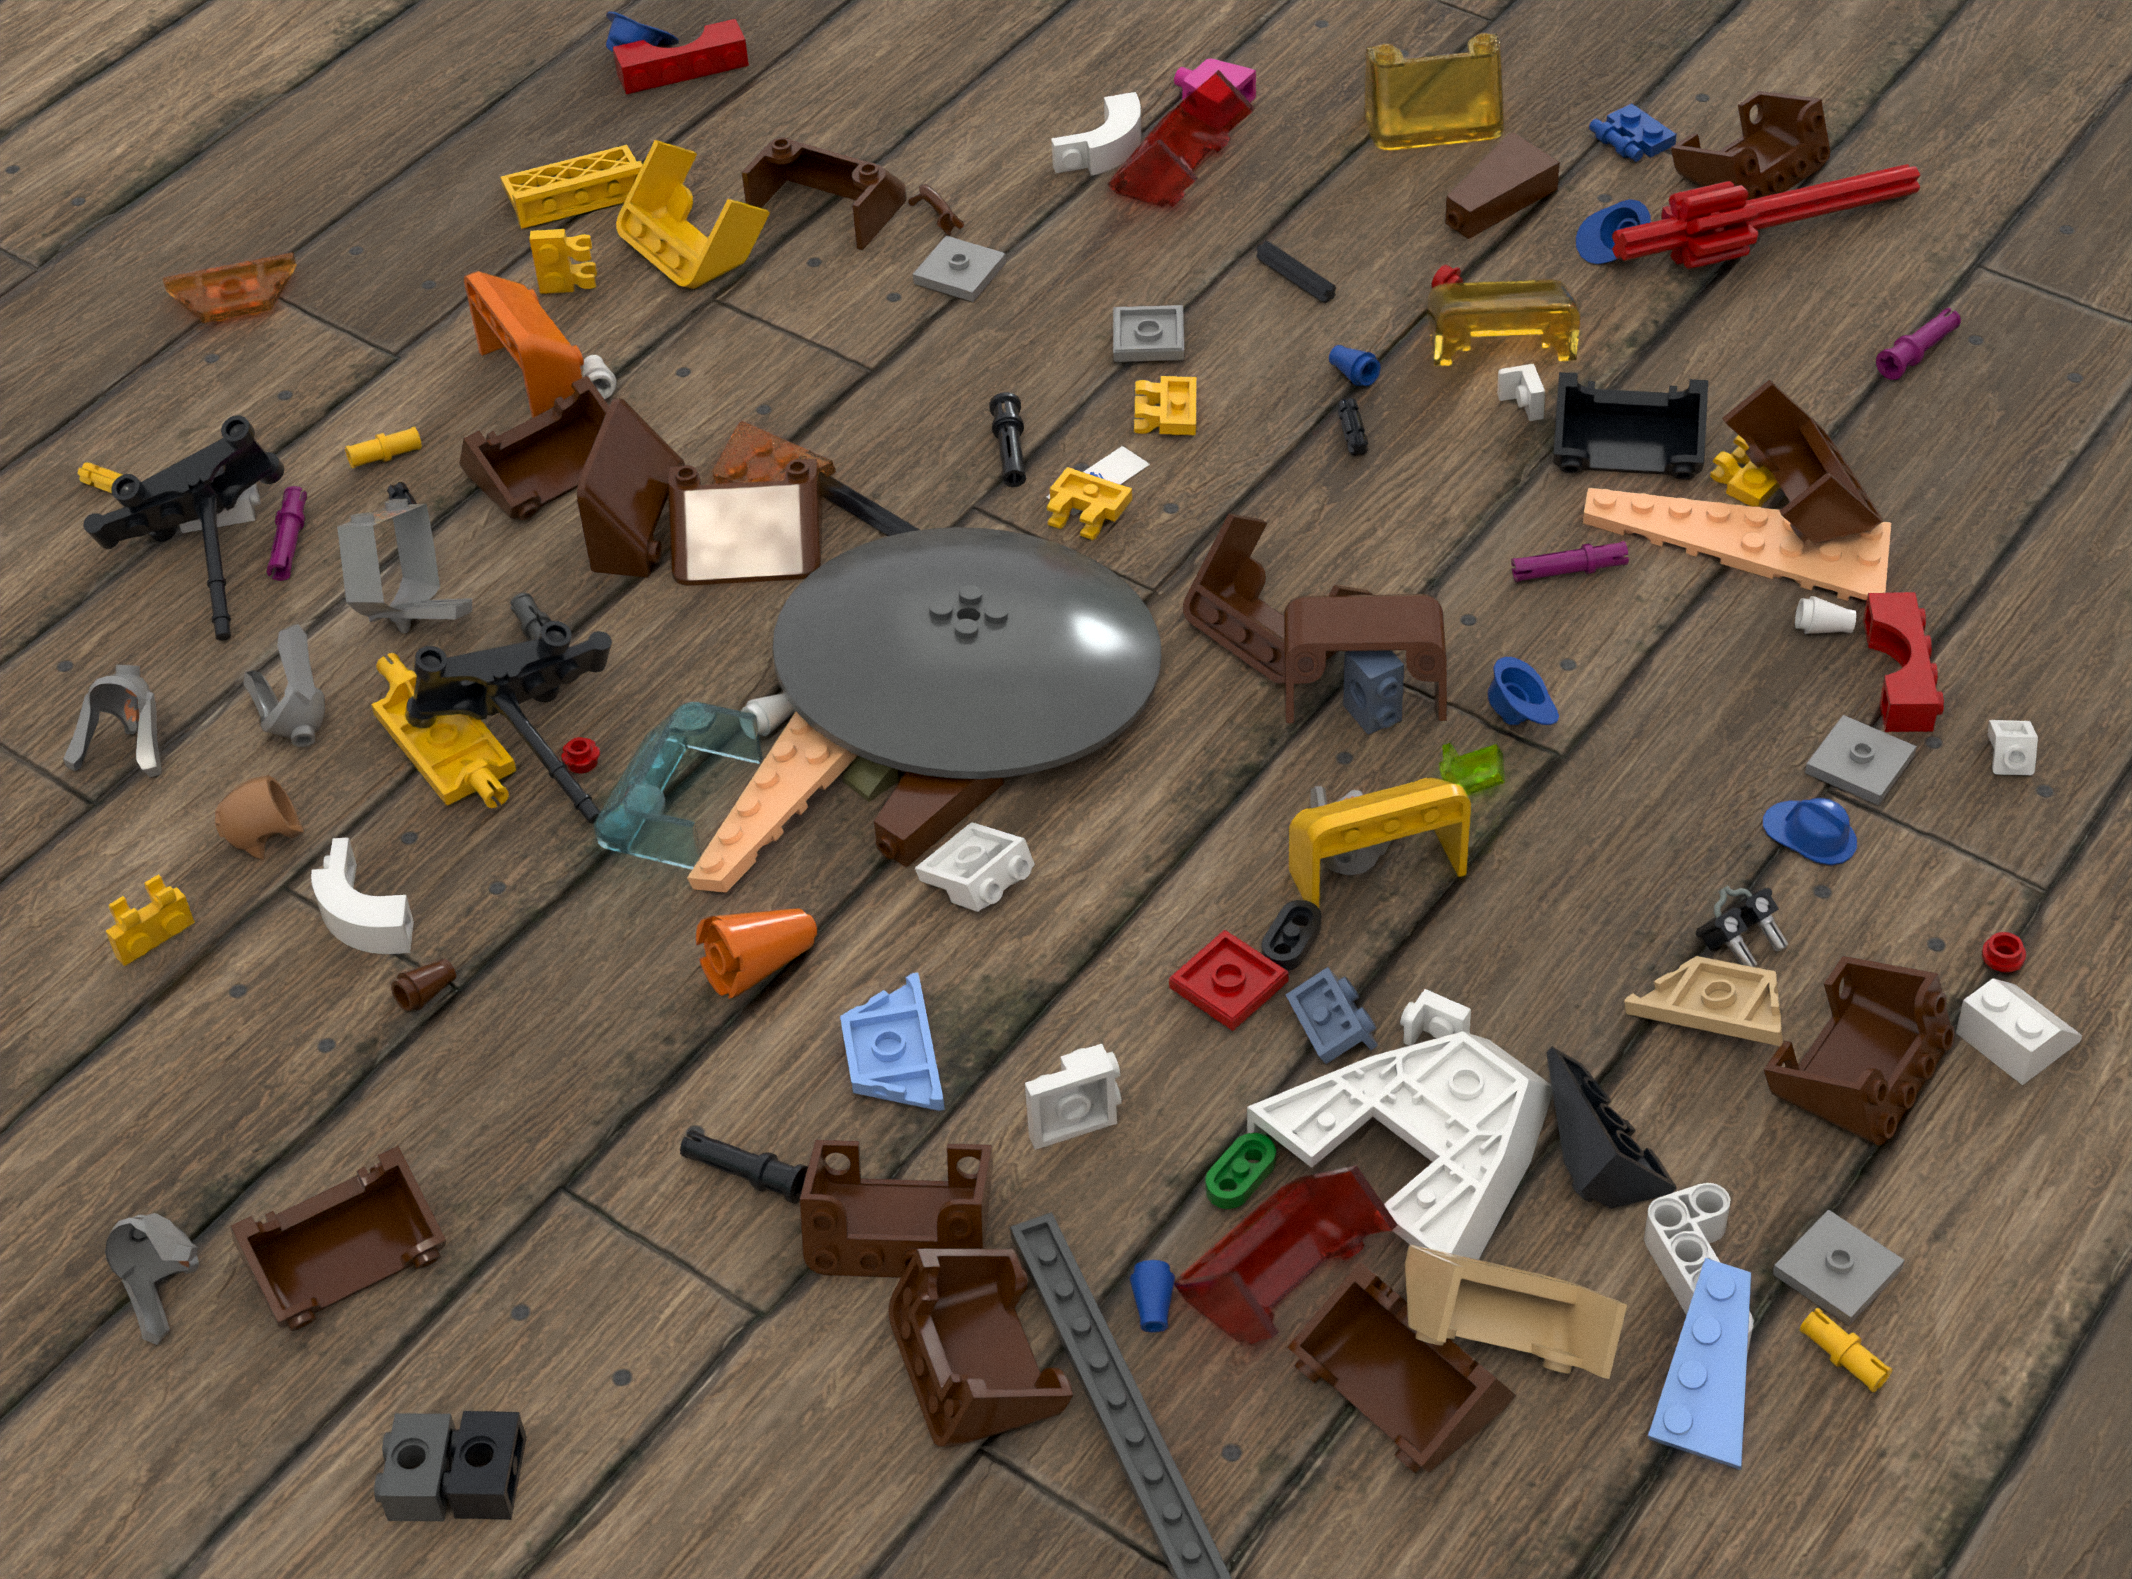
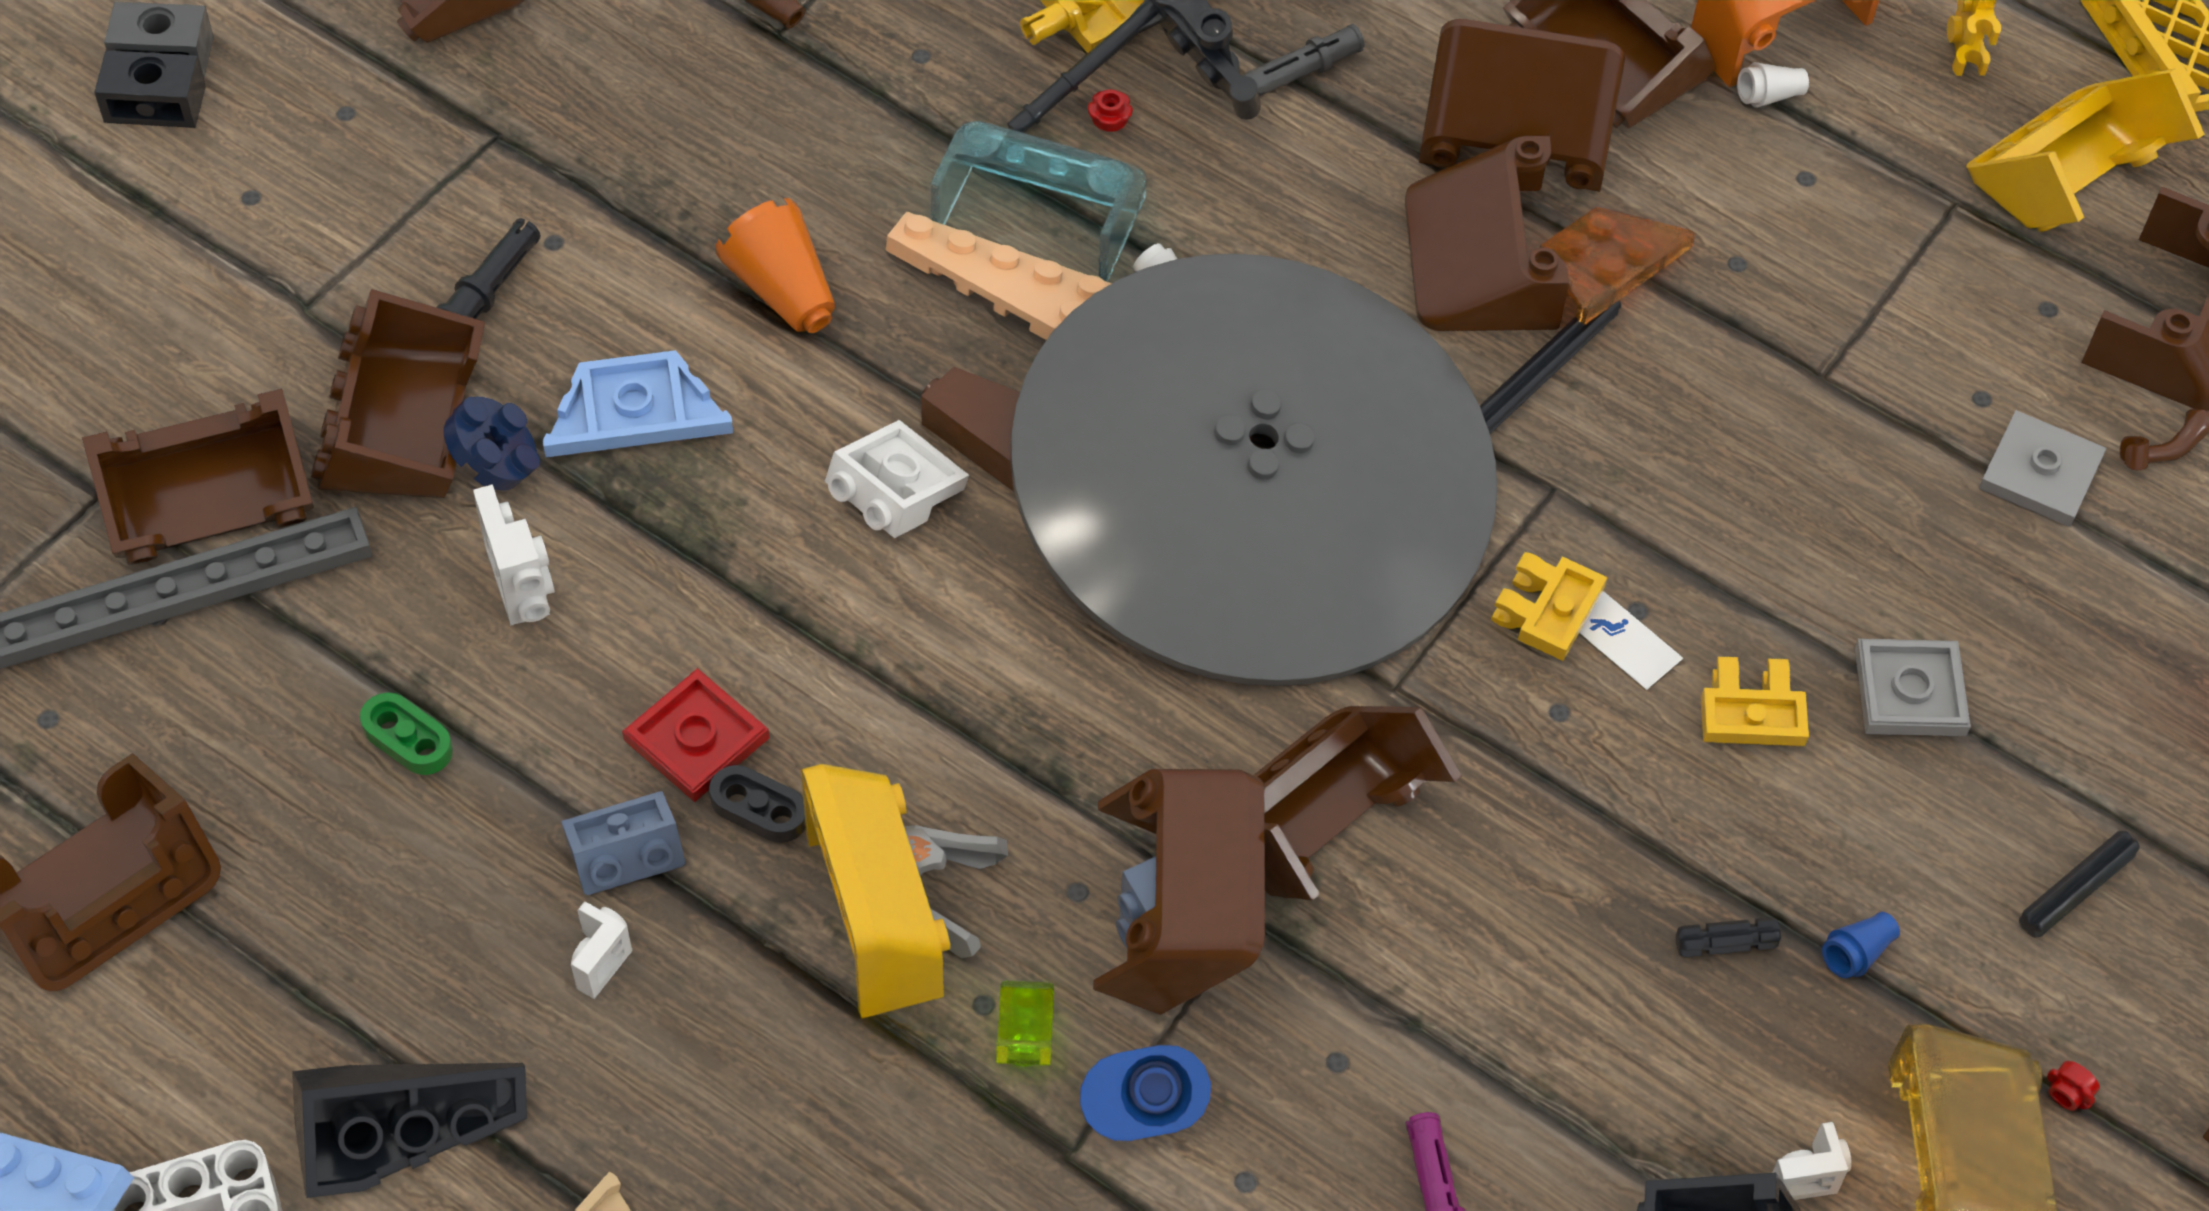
camera: 85 degrees right, 10 degrees up
(955, 1127) = (492, 441): none -> dark blue plate
(1008, 428) = (1694, 518): black pin -> none
(1152, 1290) = (252, 641): blue cone -> none
(1280, 1247) = (264, 738): clear red windscreen -> none
(1448, 1099) = (448, 961): white piece -> none
(1511, 1310) = (149, 954): tan windscreen -> none

